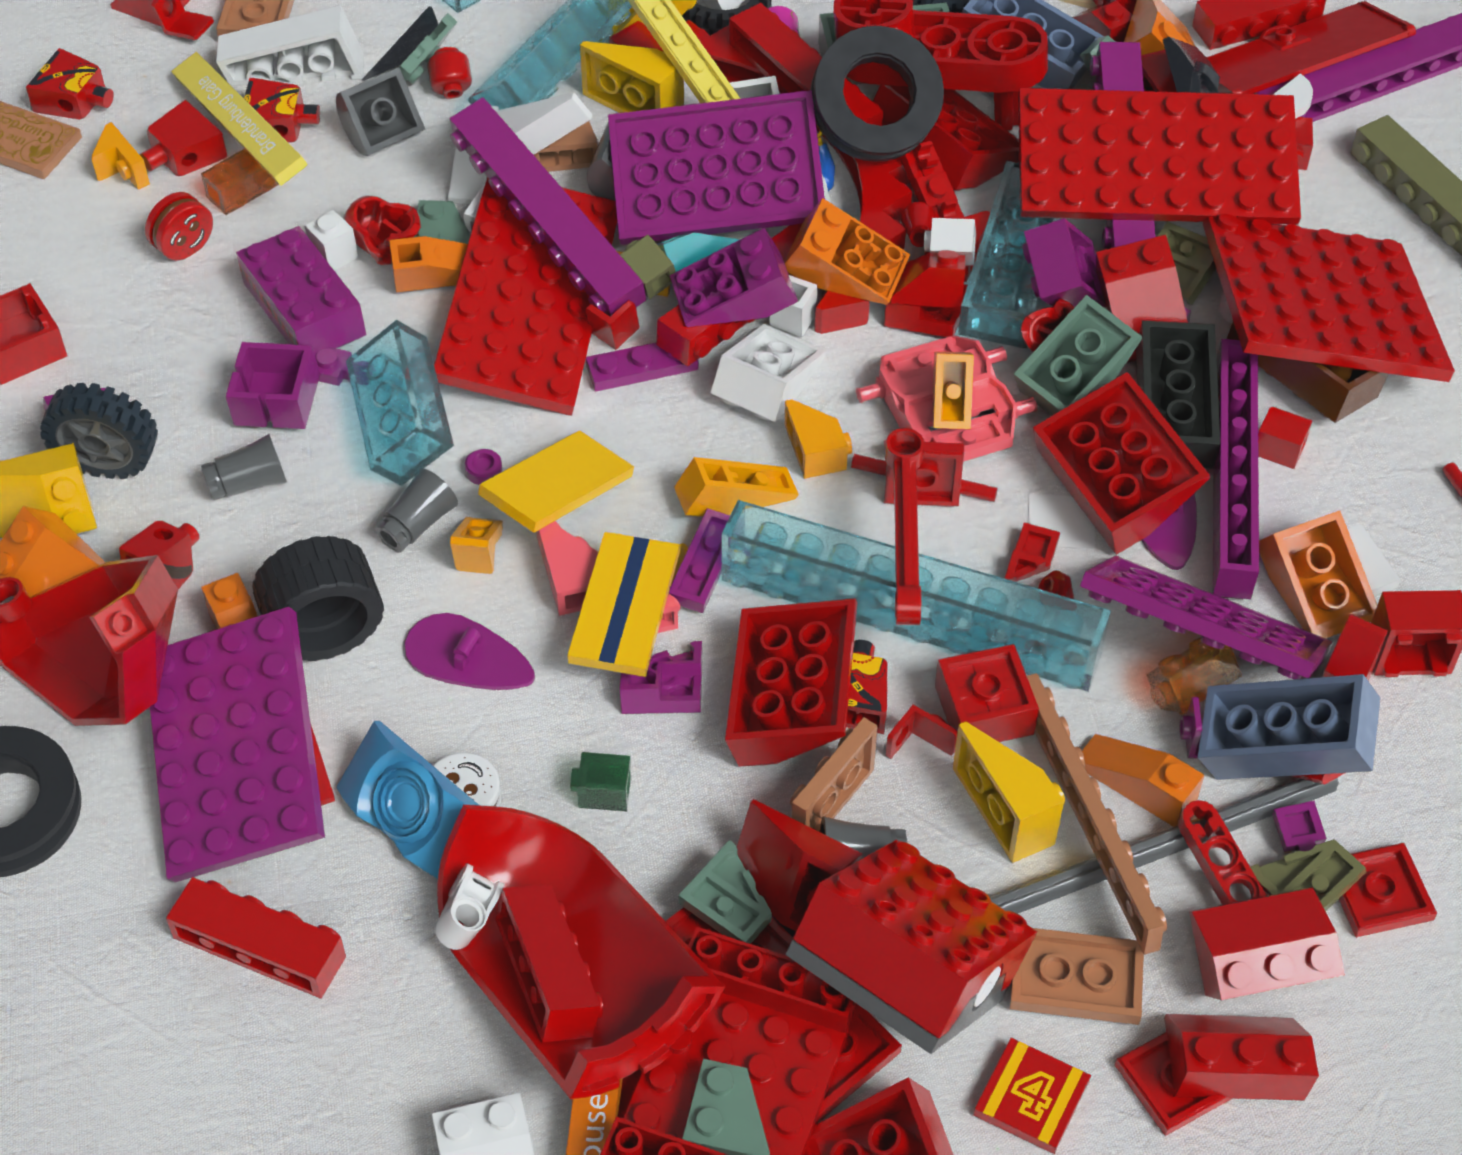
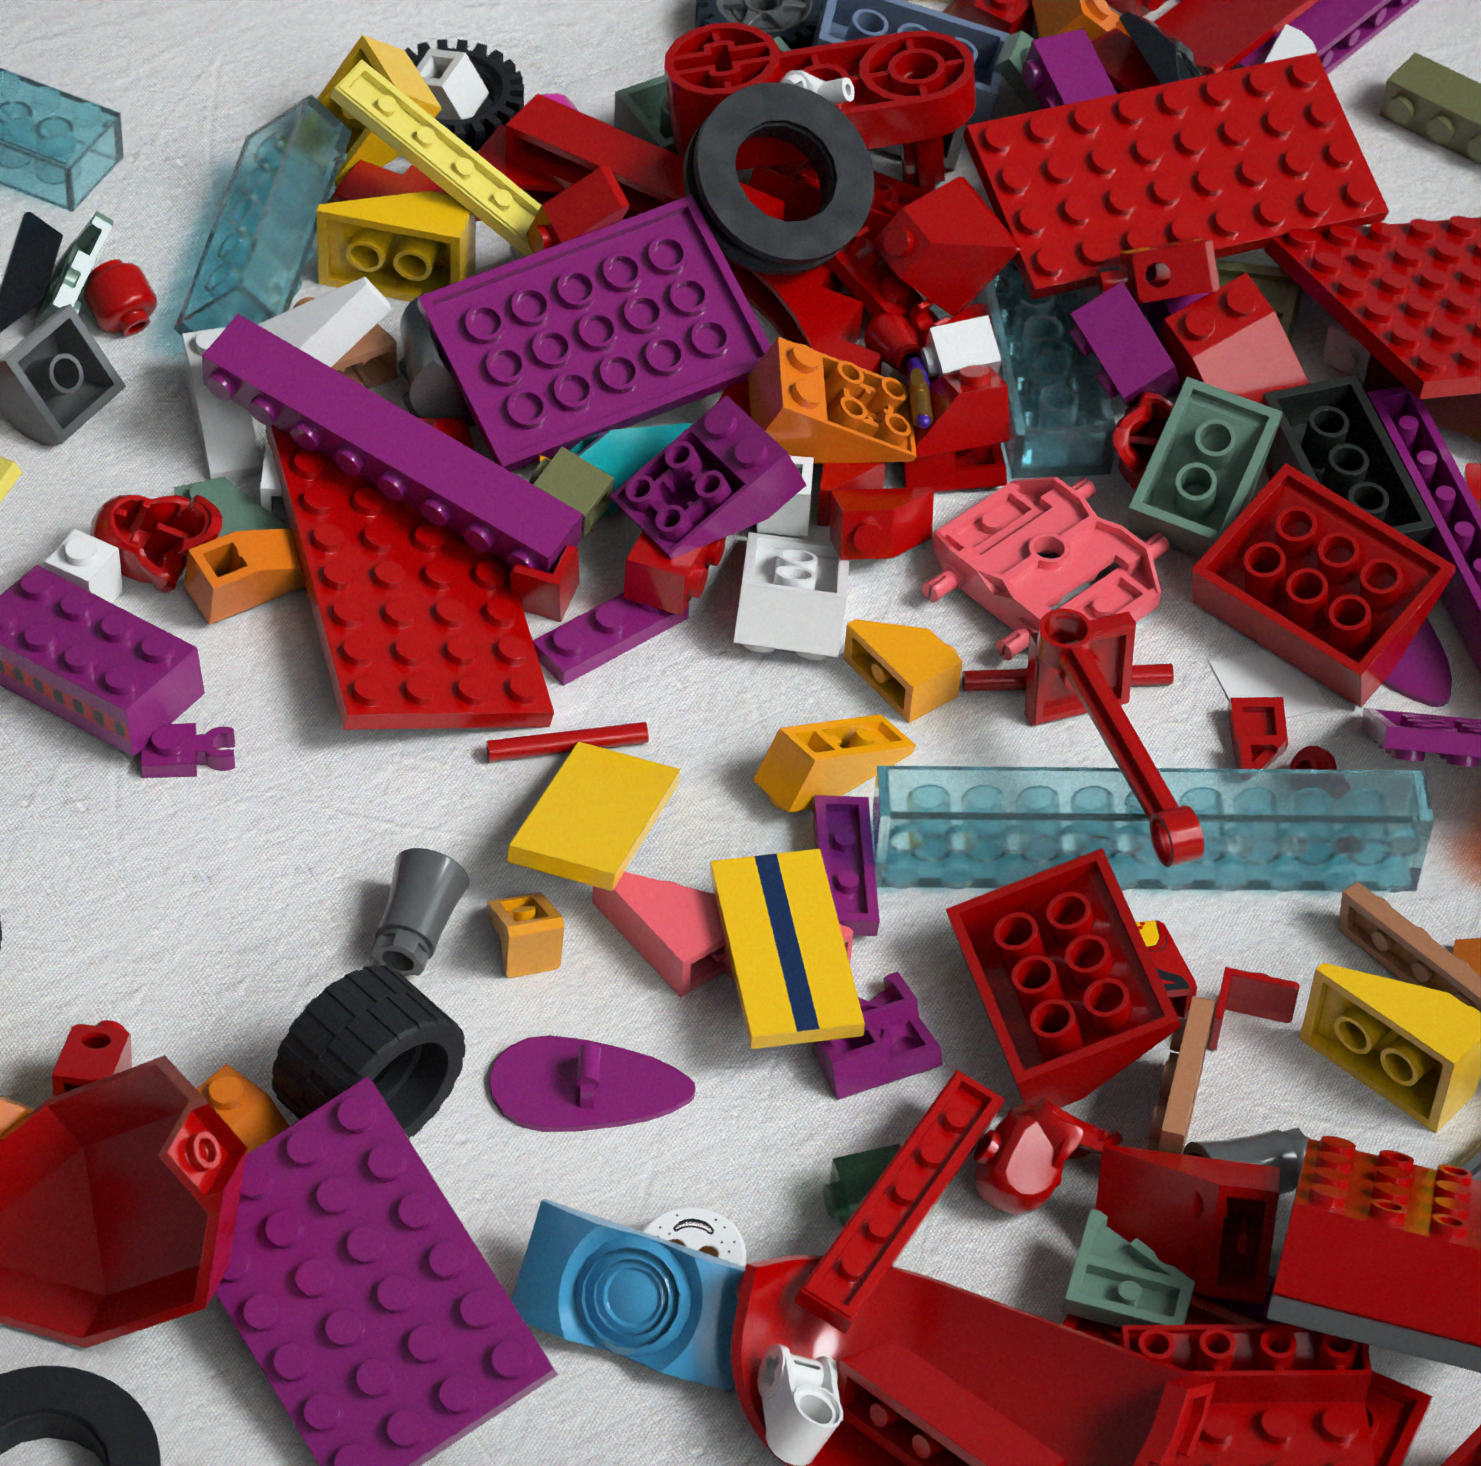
camera: 25 degrees left, 5 degrees down
(244, 469) = (141, 923): dark grey plant -> none
(273, 385) = (121, 796): magenta piece -> none
(399, 403) = (321, 770): clear light blue brick -> none
(482, 465) = (469, 828): magenta tile -> none
(569, 427) = (566, 741): none -> red piece
(604, 794) = (899, 1202): none -> red tile
(713, 786) = (1027, 1154): none -> red head
(734, 82) = (578, 210): none -> red slope
(849, 339) = (880, 521): none -> red slope
(912, 255) = (918, 388): none -> pearl gold piece
(933, 43) = (835, 91): none -> white arm
(952, 389) = (1067, 546): light orange slope -> none
(975, 165) = (947, 245): none -> red slope
(988, 693) = (1304, 920): red container -> none
(1124, 223) = (1180, 270): none -> red torso

